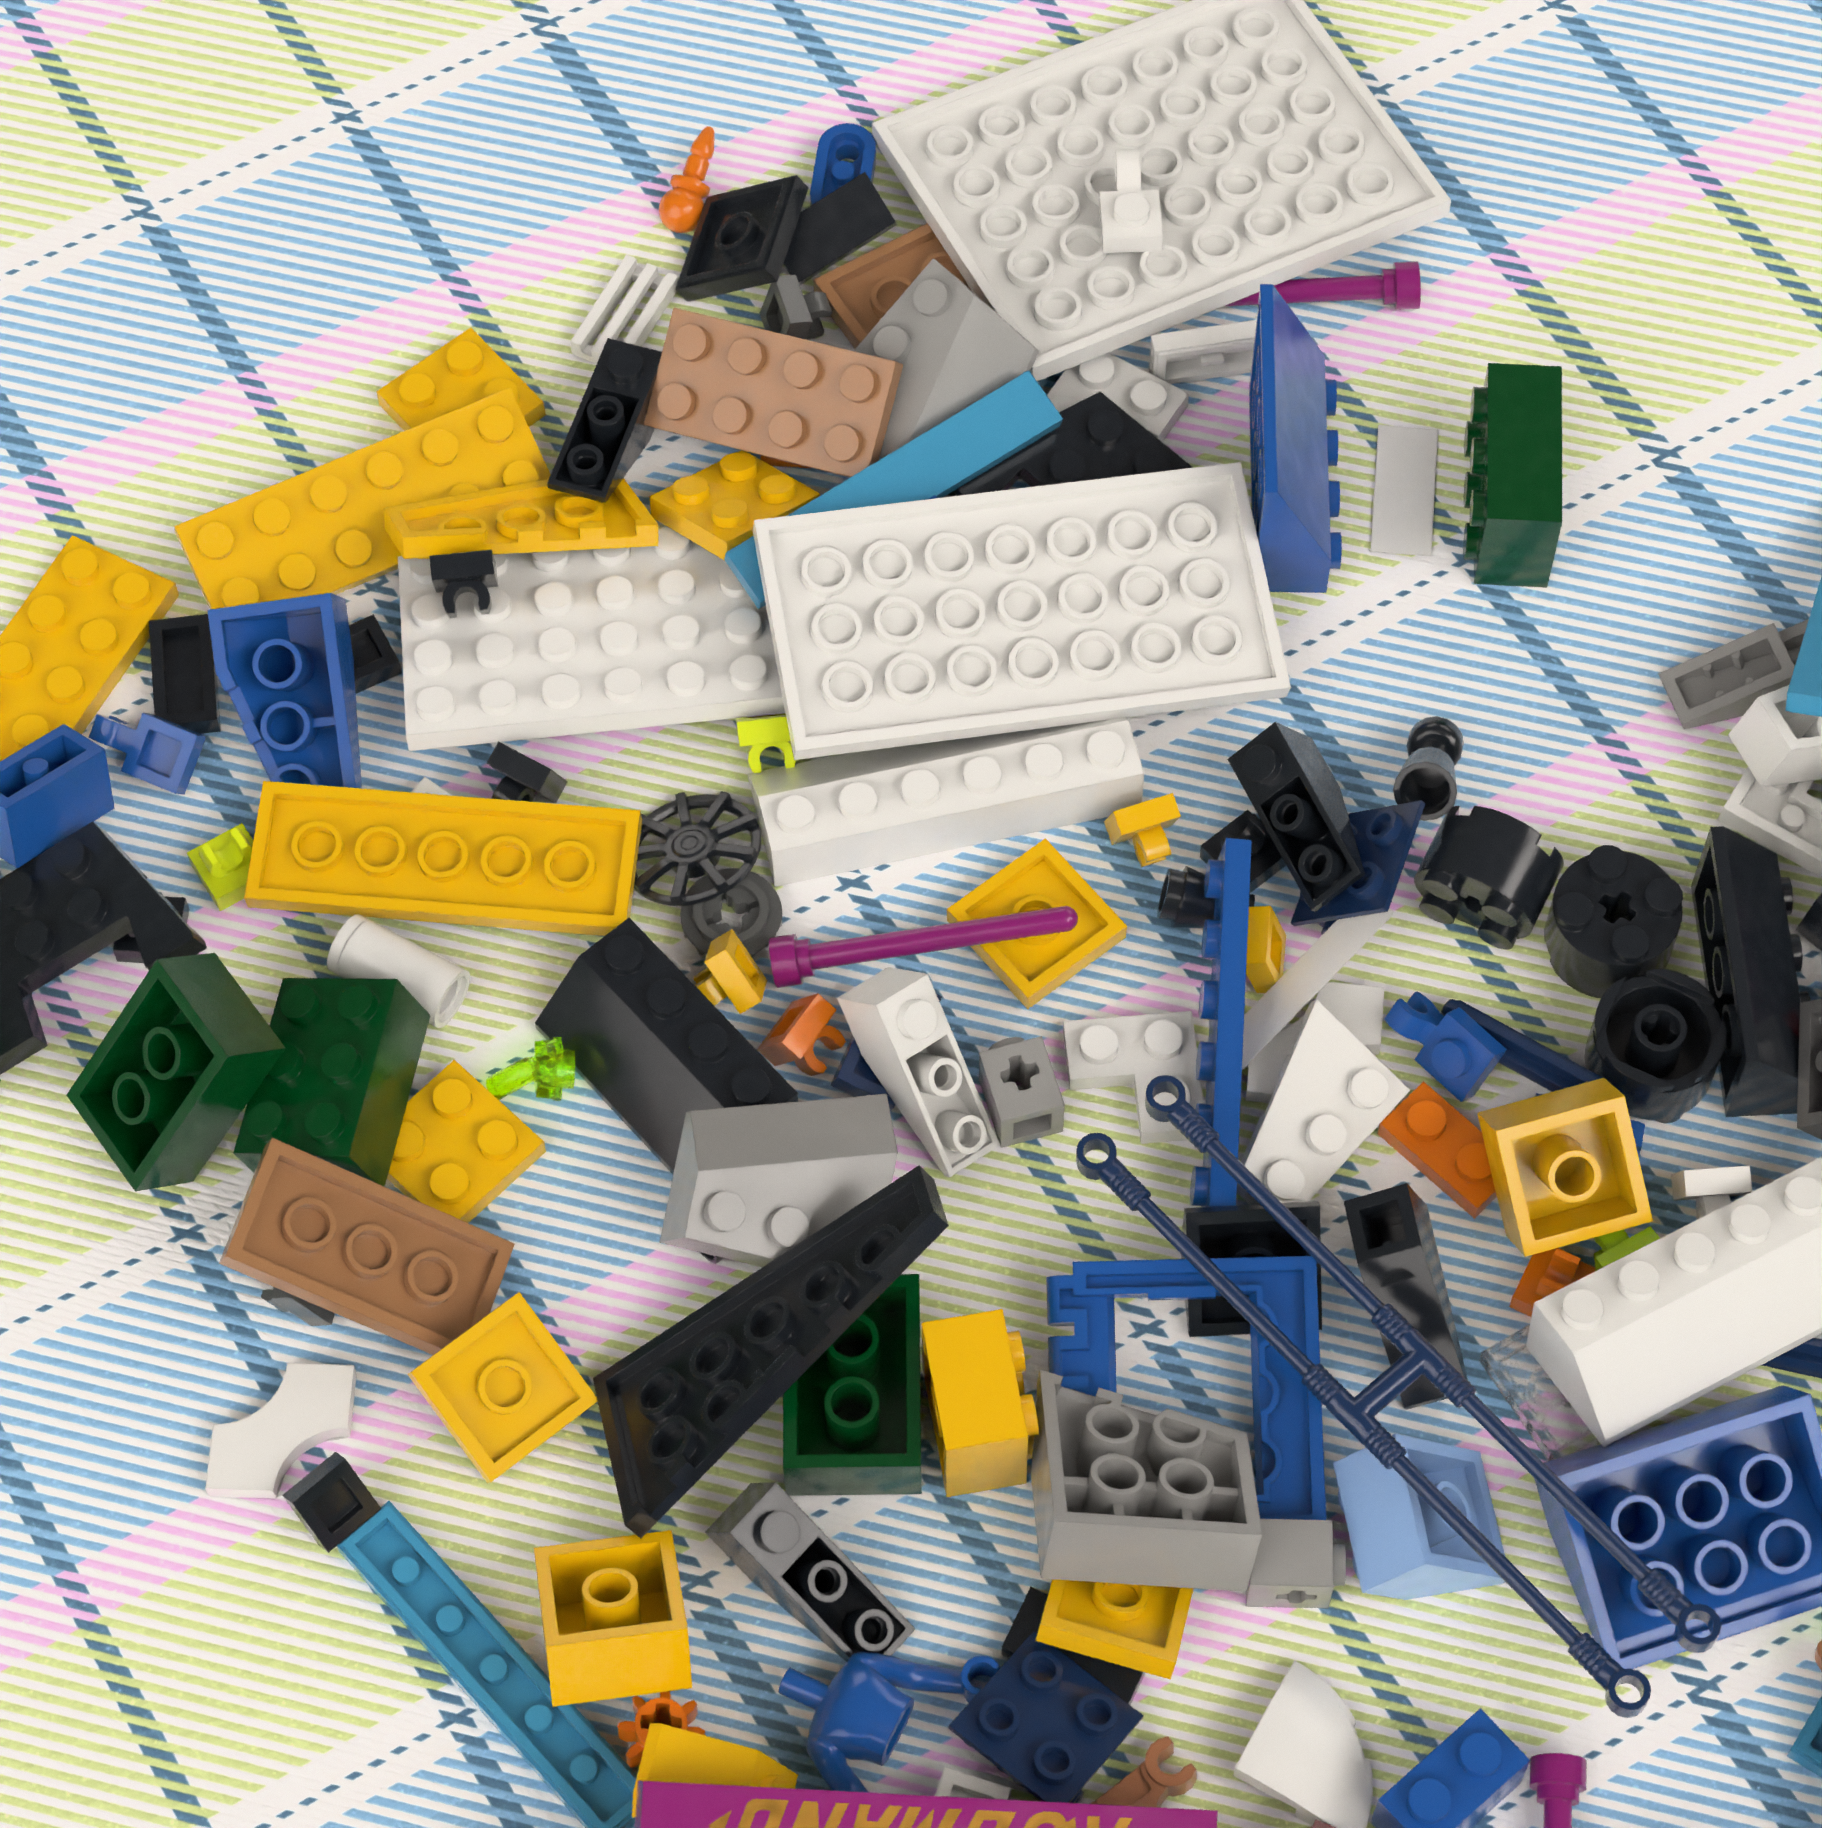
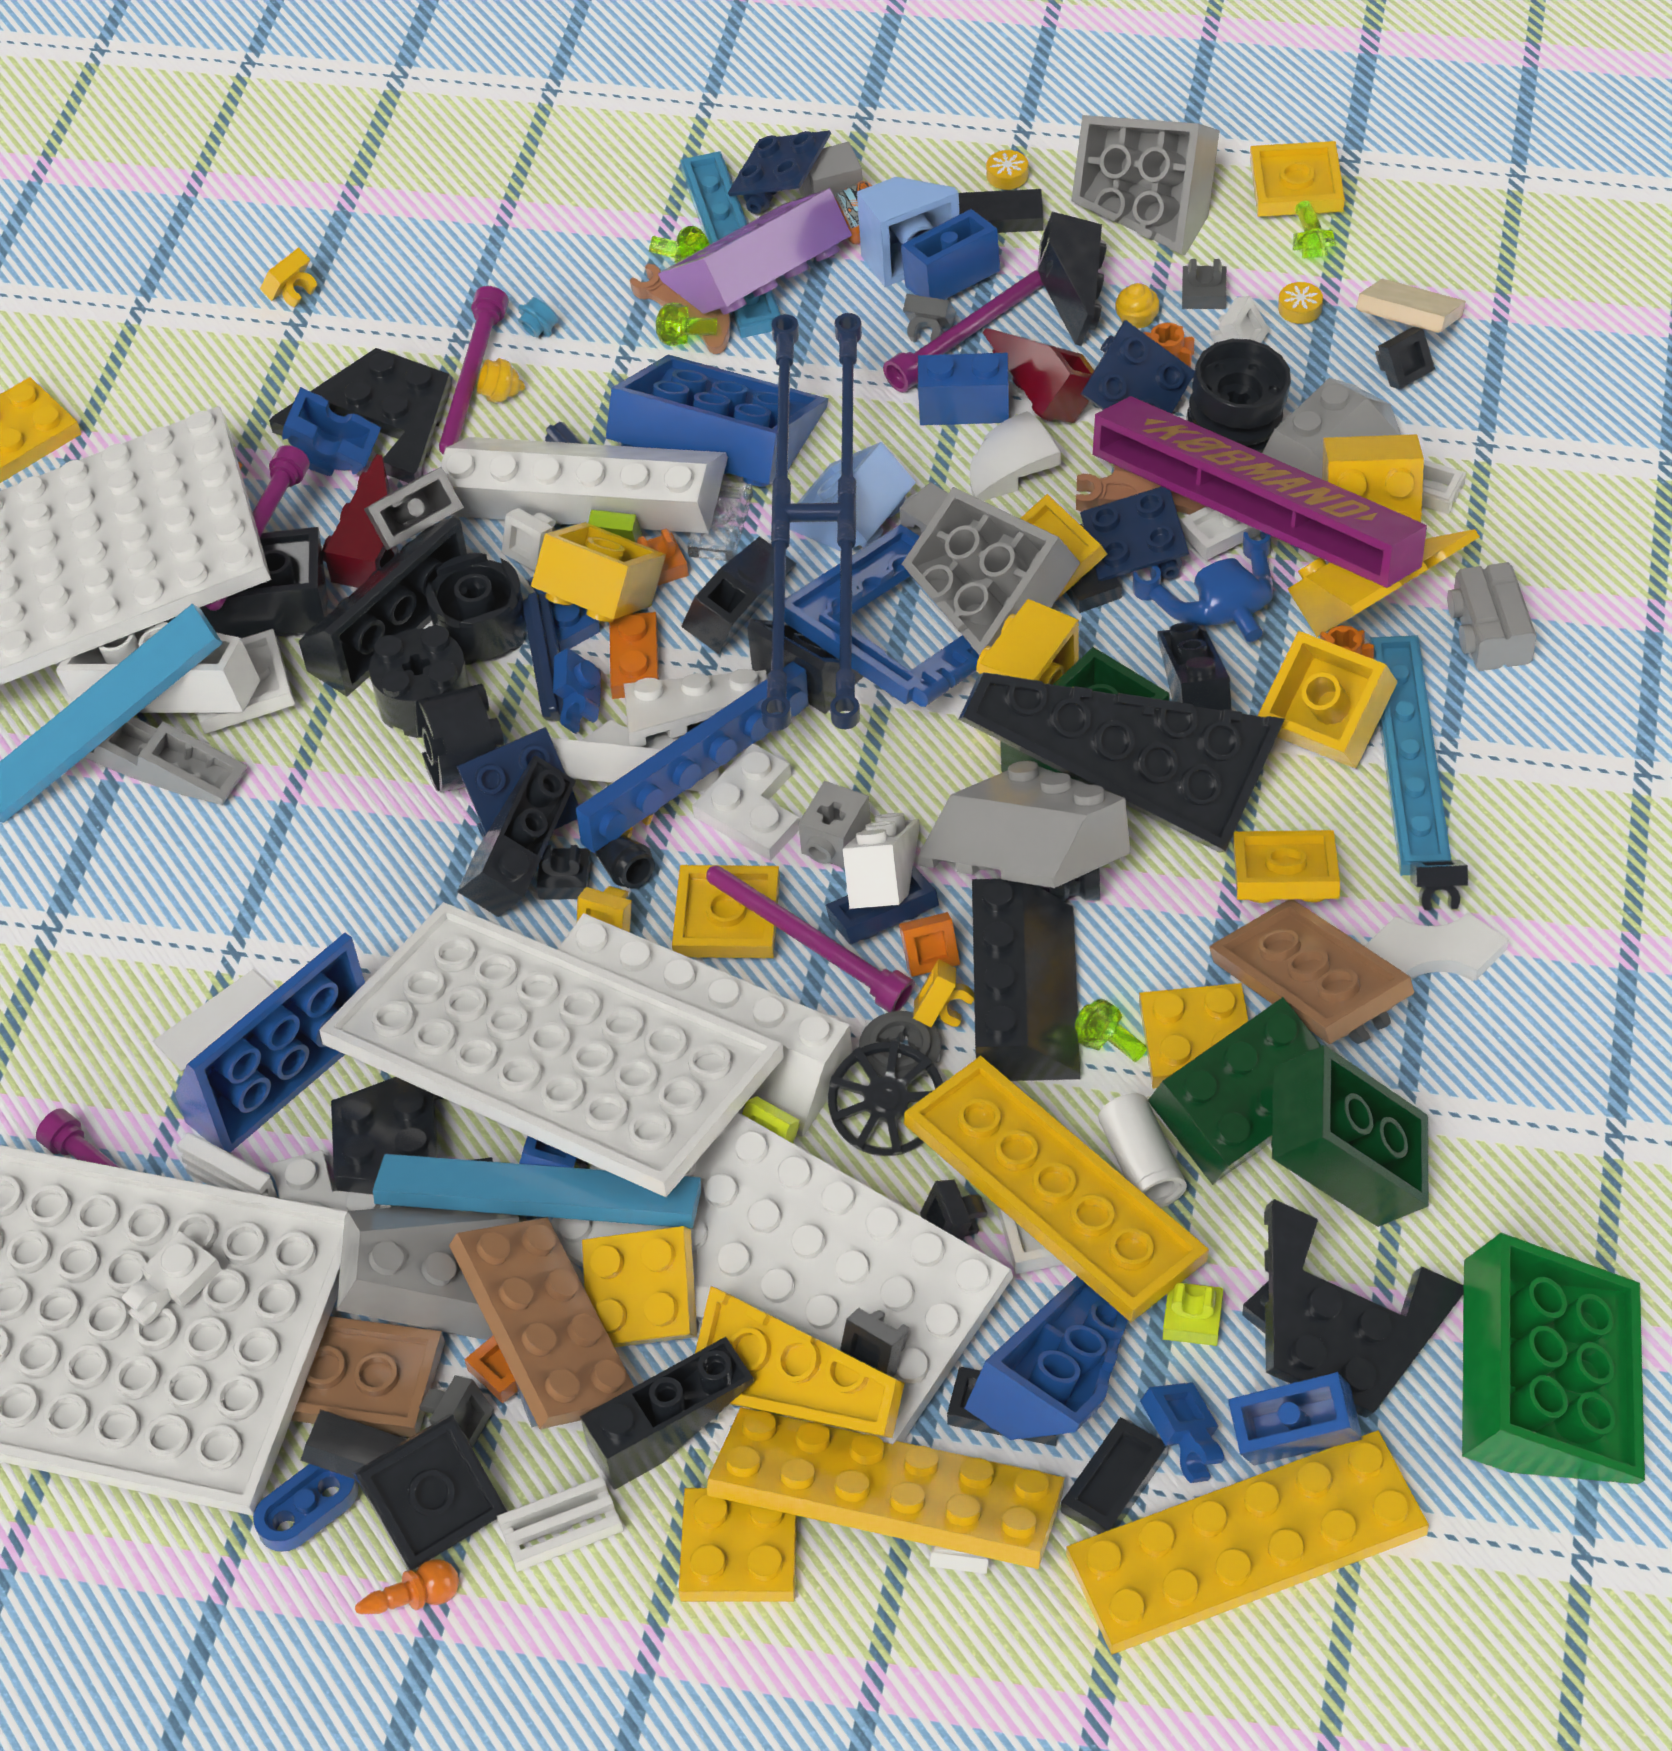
camera: 135 degrees left, 10 degrees down
(1429, 771) = (428, 800): black piece -> none
(1514, 475) = (162, 934): dark green brick -> none

